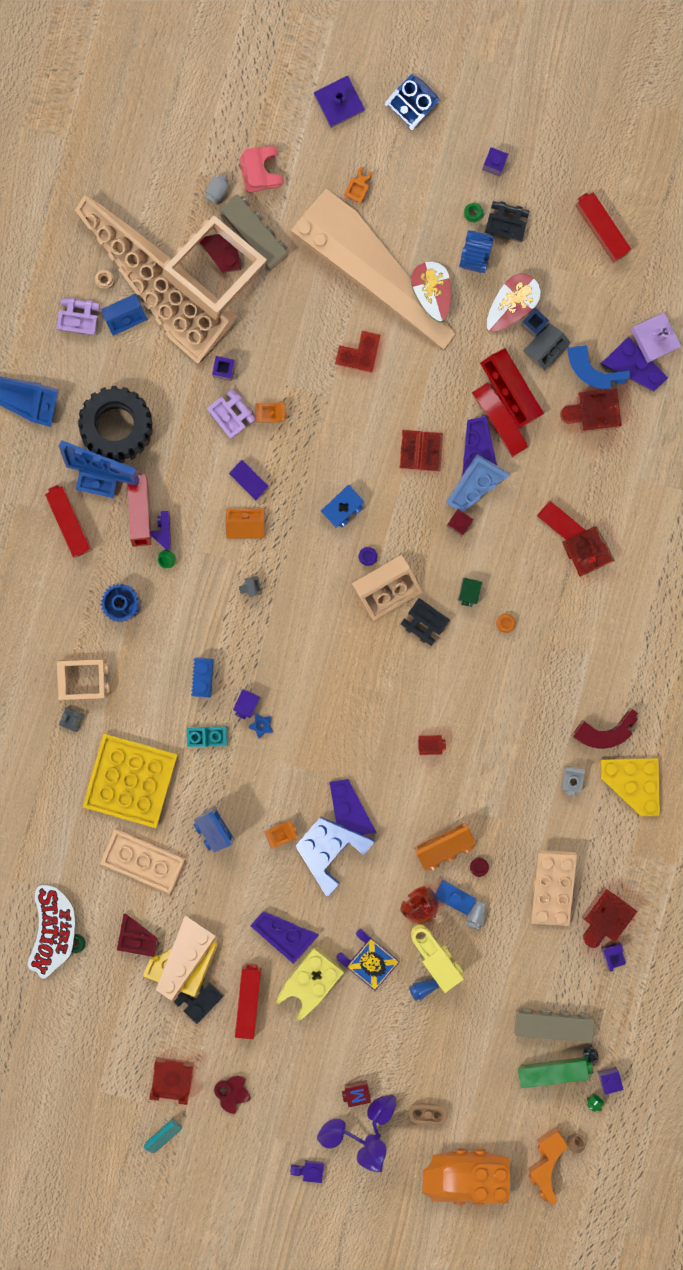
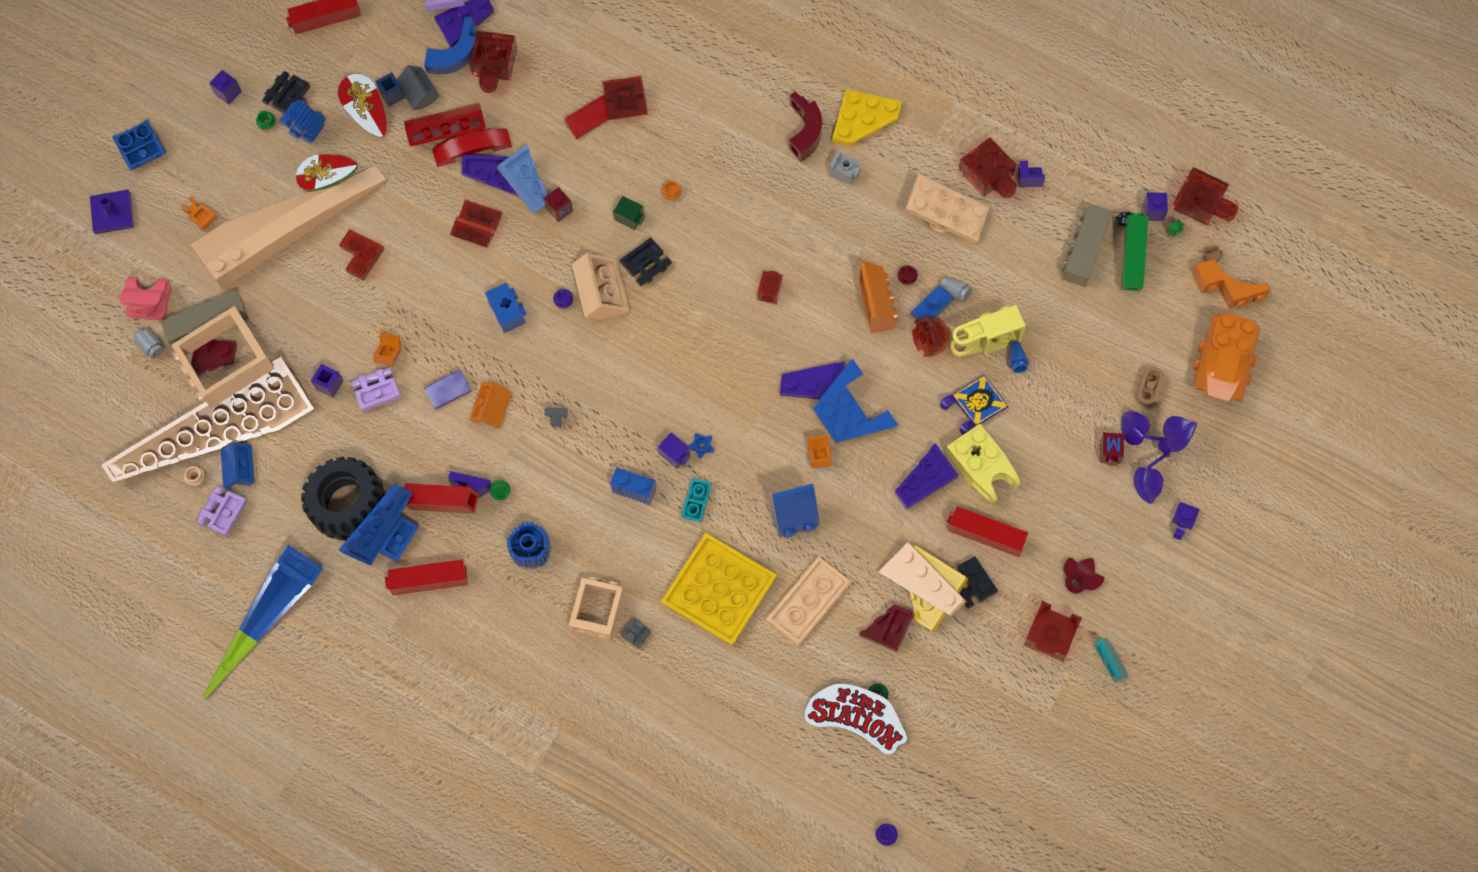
camera: 65 degrees left, 20 degrees down
(629, 1125) = (1204, 197): none -> clear red brick

